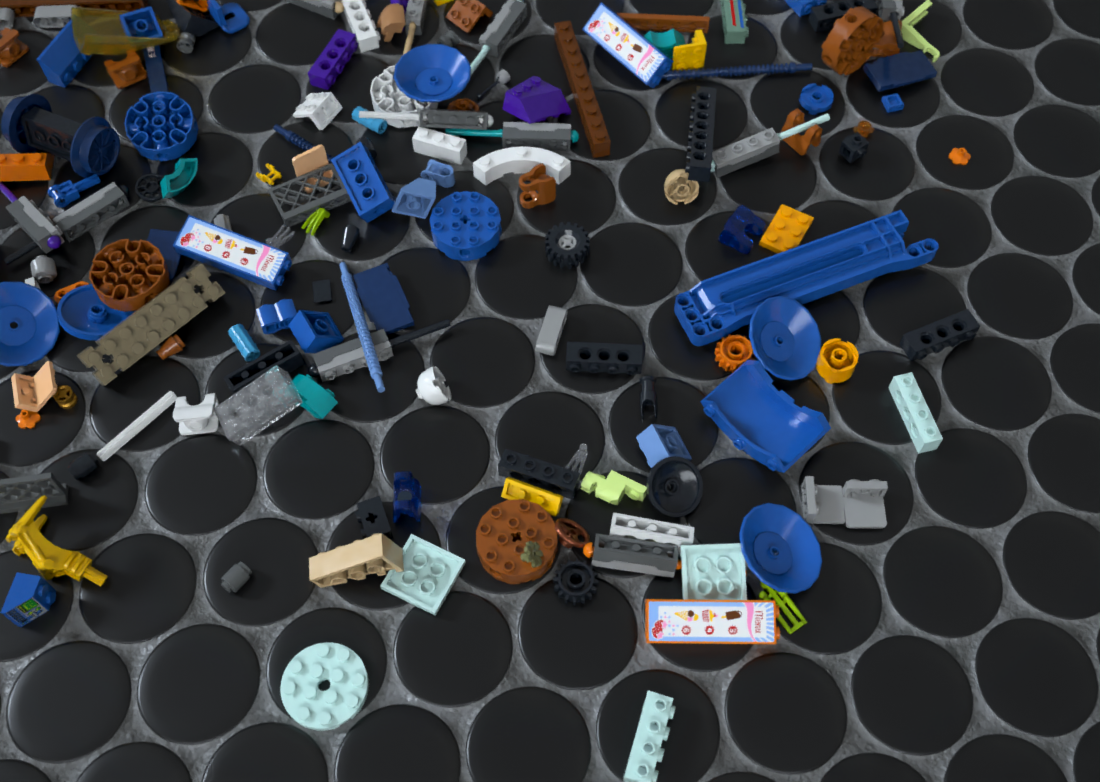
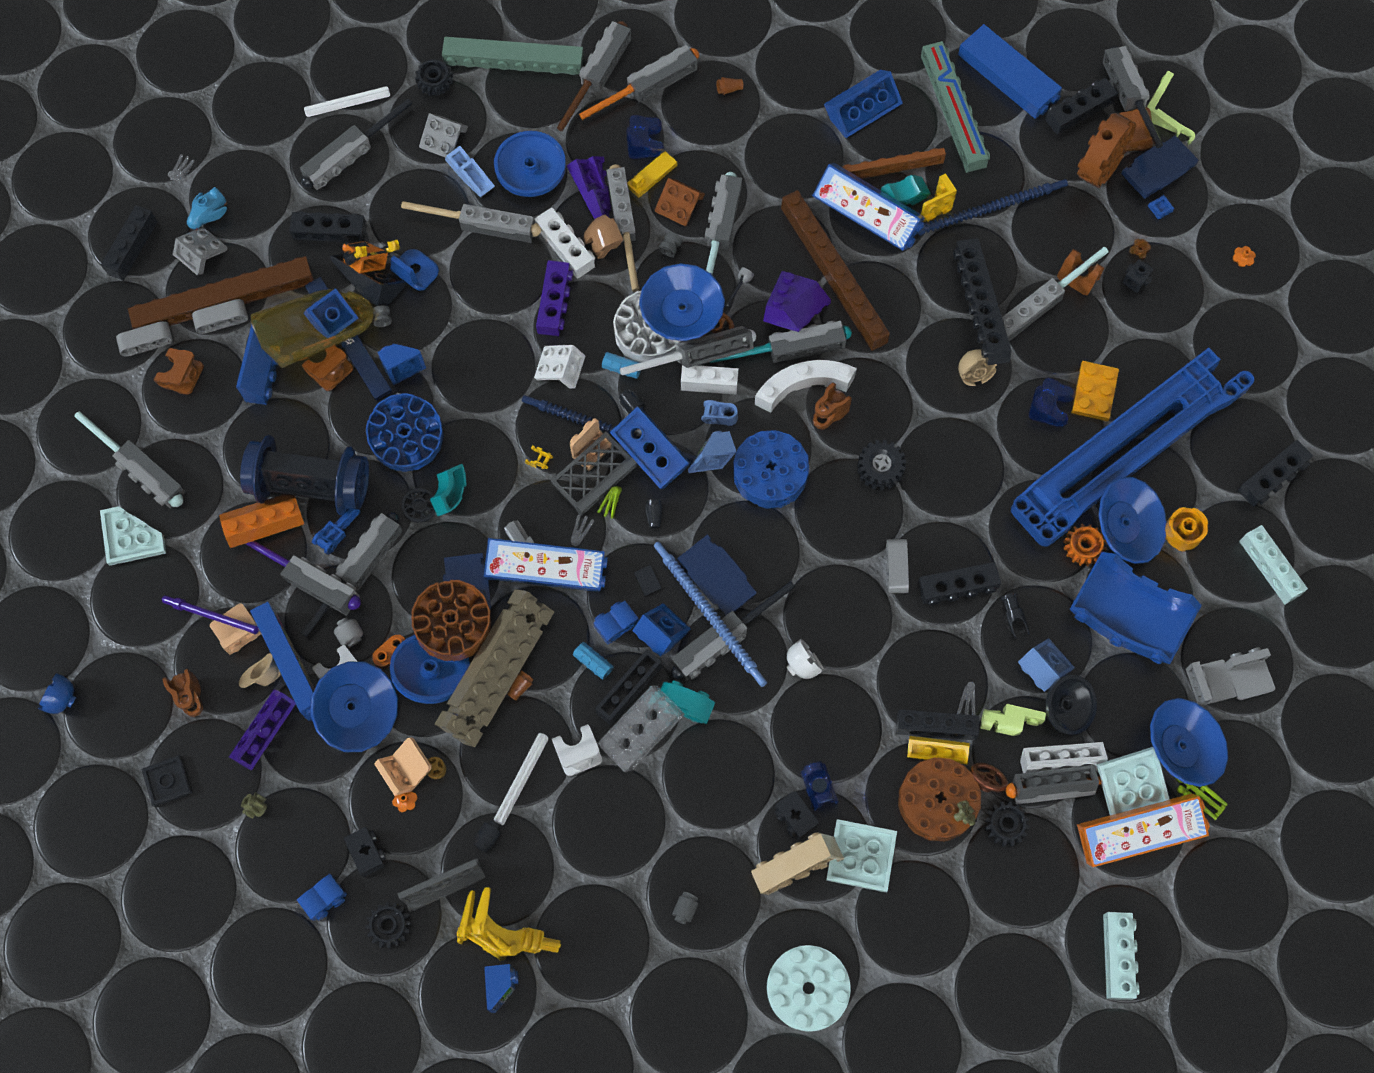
camera: 15 degrees left, 10 degrees up
(183, 75) = (401, 362): none -> blue slope
(813, 105) = (1080, 231): blue plate -> none

